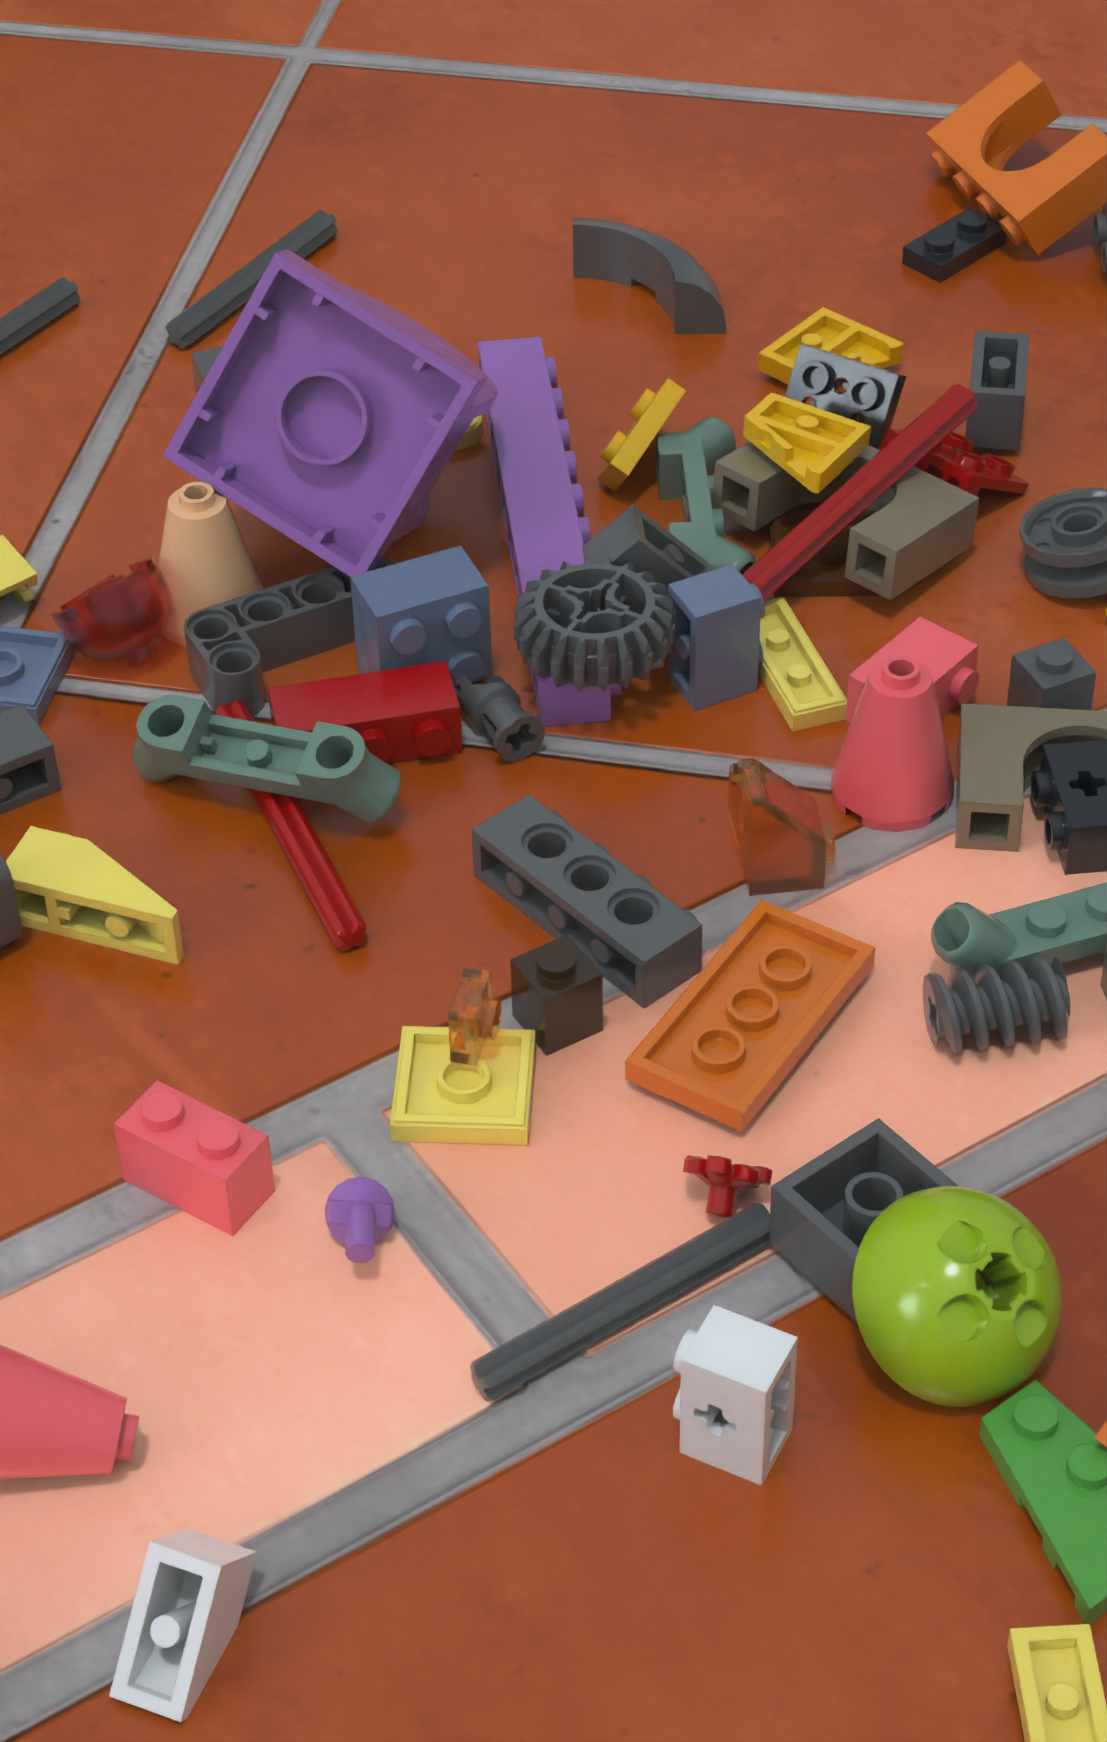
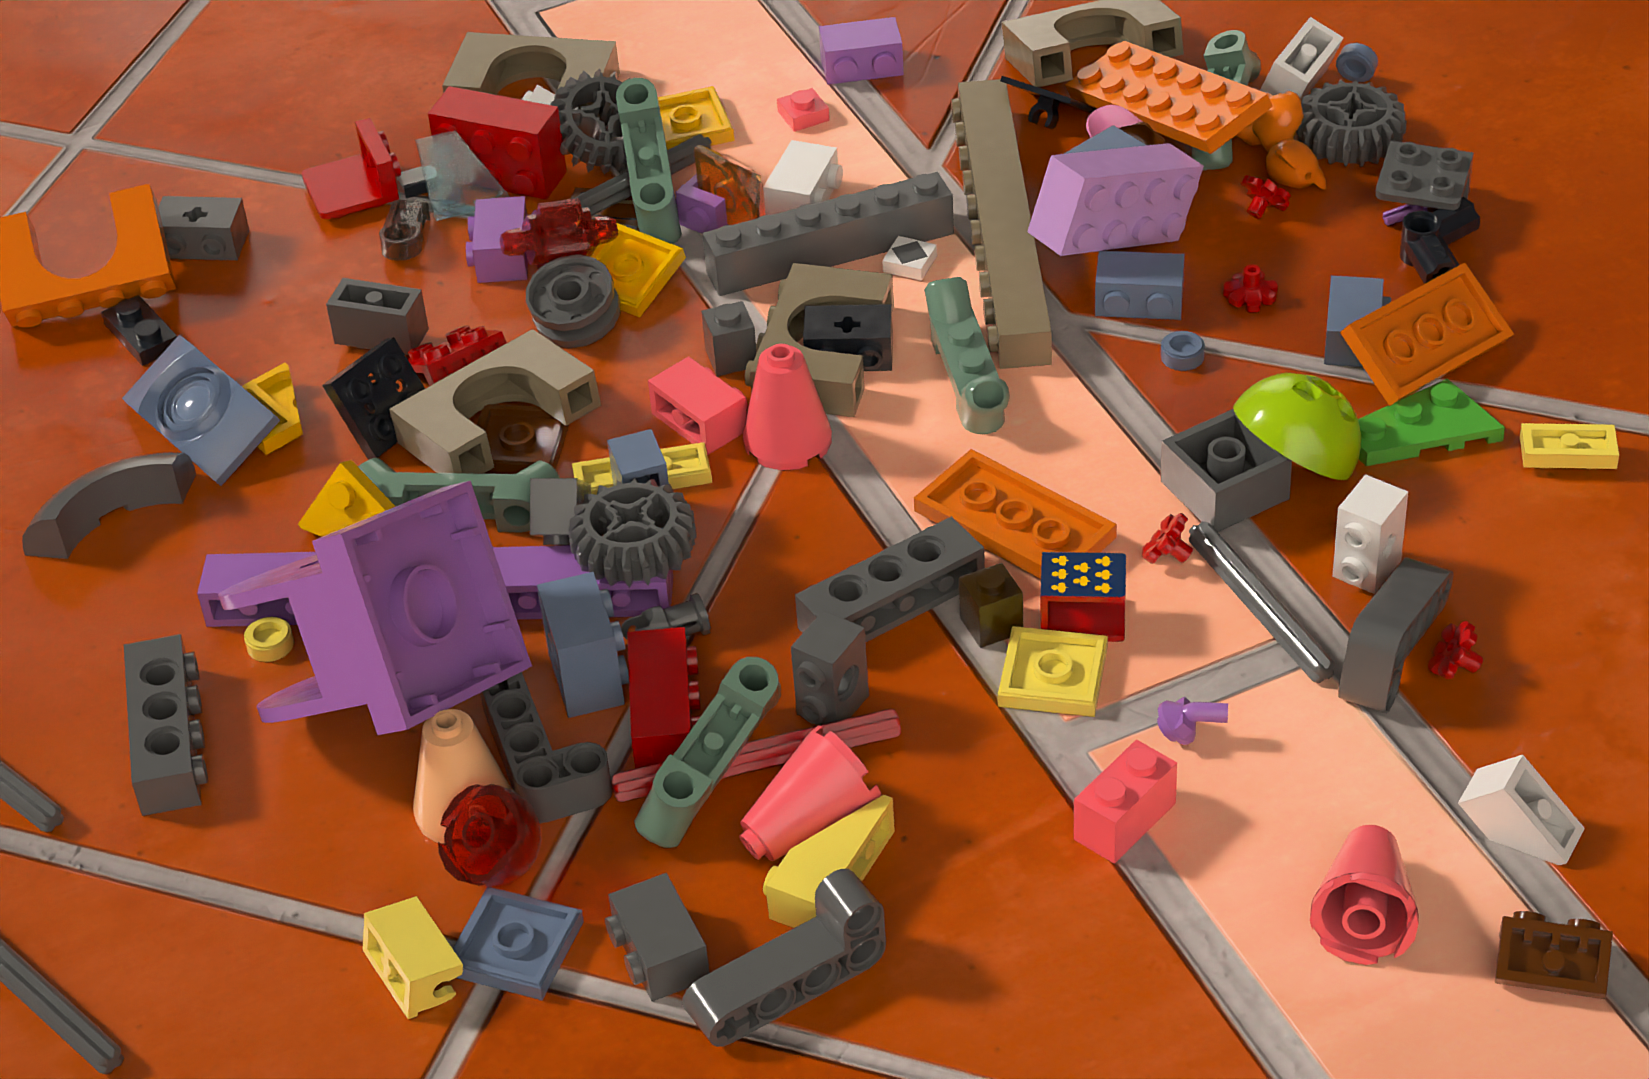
camera: 80 degrees left, 0 degrees up
(196, 859) = (806, 796): none -> coral cone
(390, 839) = (830, 669): none -> dark grey brick
(472, 1016) = (1019, 640): clear orange plate -> none
(525, 1540) = (1455, 651): none -> red plant
(561, 1441) = (1389, 632): none -> dark grey beam
(581, 1085) = (1084, 593): none -> piece
(777, 831) = (838, 487): clear orange slope -> none
(800, 299) = (201, 410): none -> sand blue slope
(805, 439) = (453, 395): yellow wing -> none
(861, 490) = (514, 388): red axle -> none
(997, 1003) = (1035, 400): dark grey piece -> none

